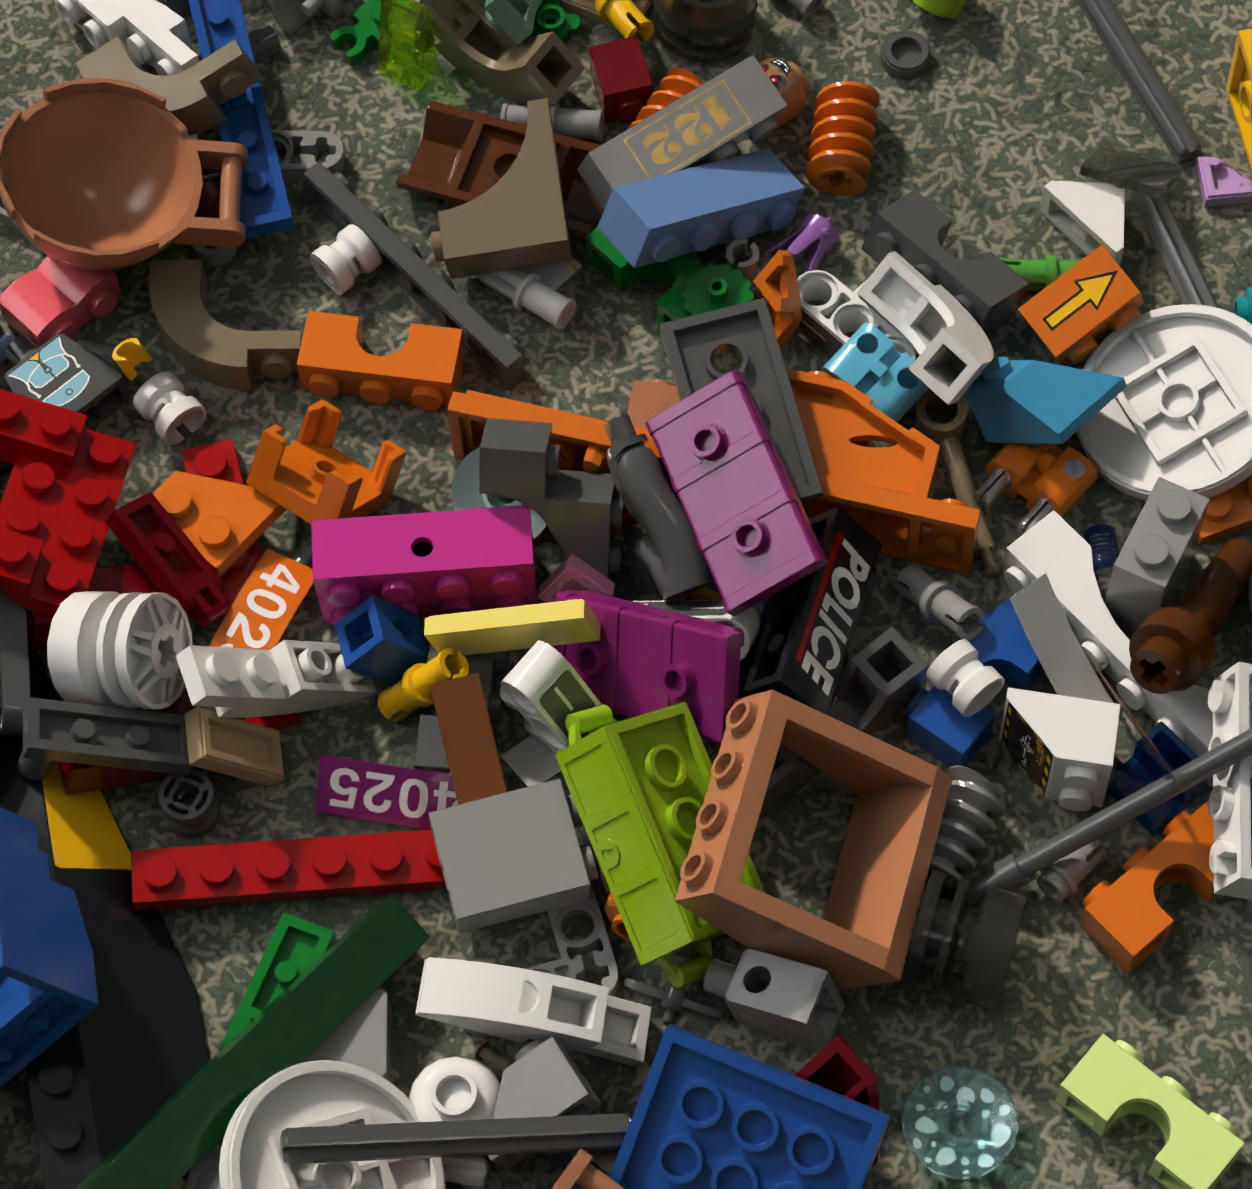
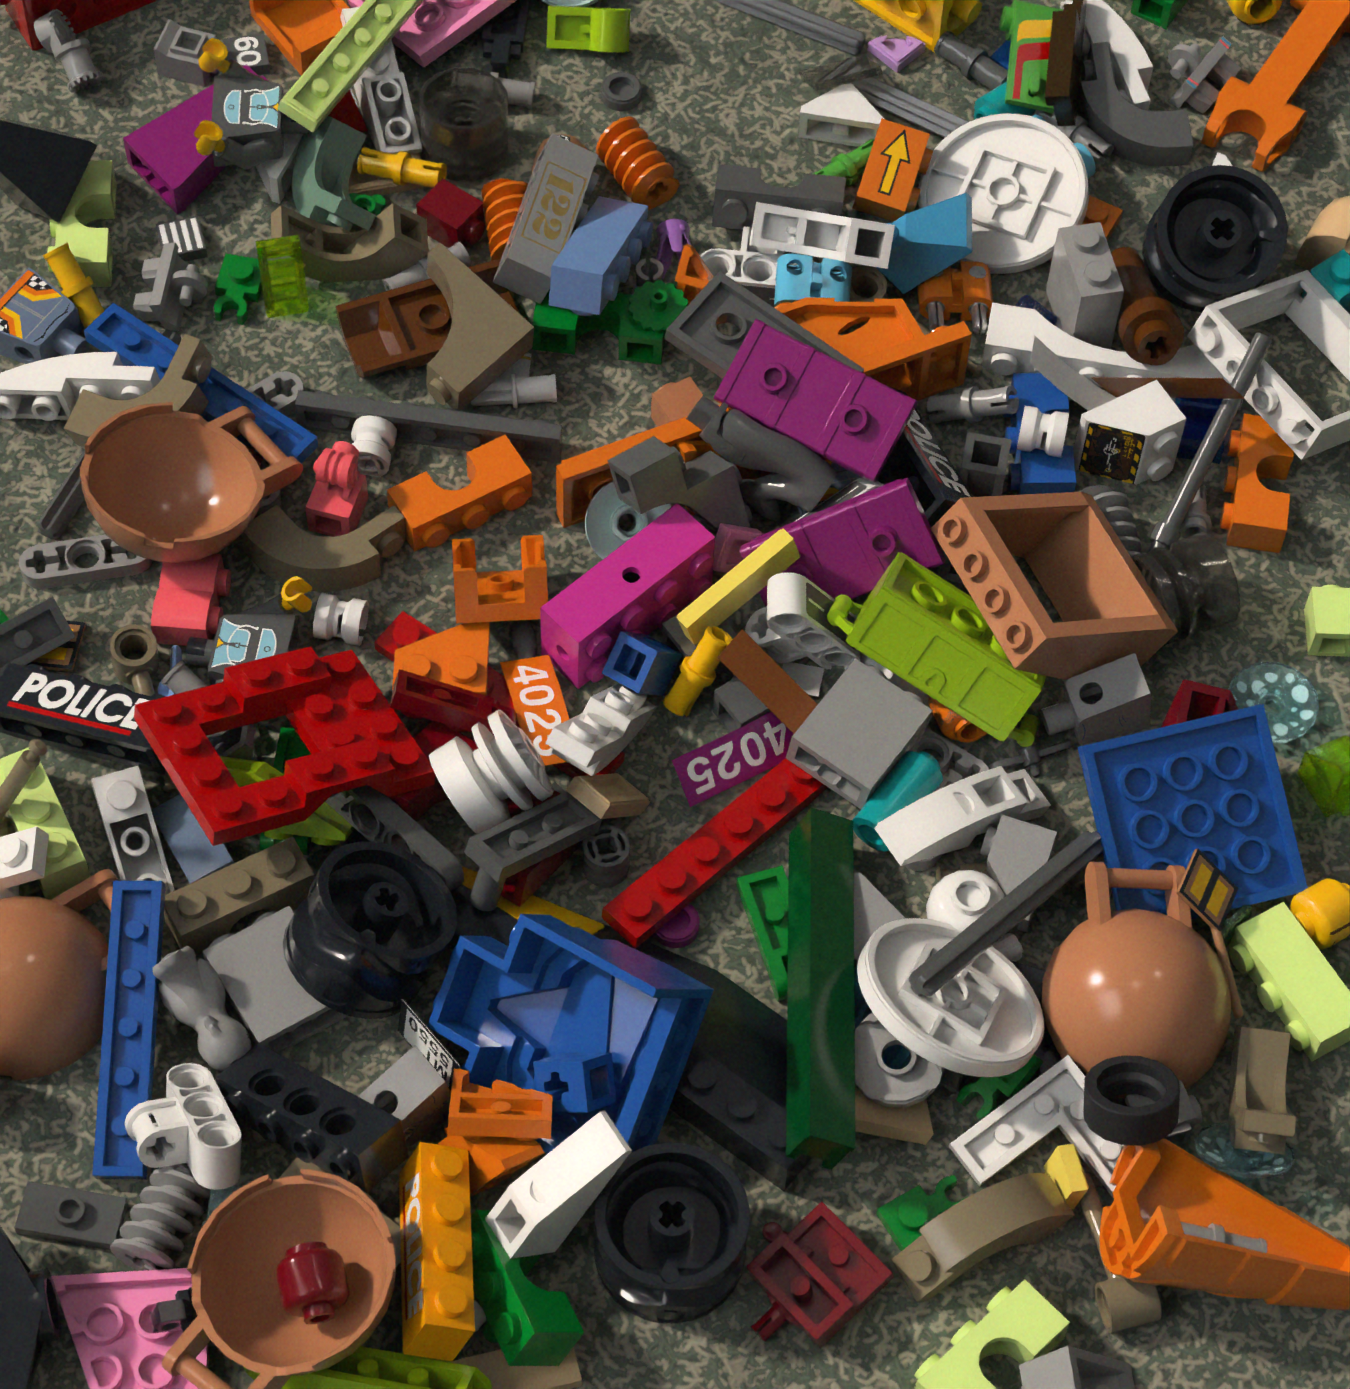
camera: 45 degrees left, 5 degrees down
(199, 923) = (680, 929): none -> magenta tile
(270, 284) = (338, 491): none -> coral brick
(511, 940) = (910, 780): none -> teal brick

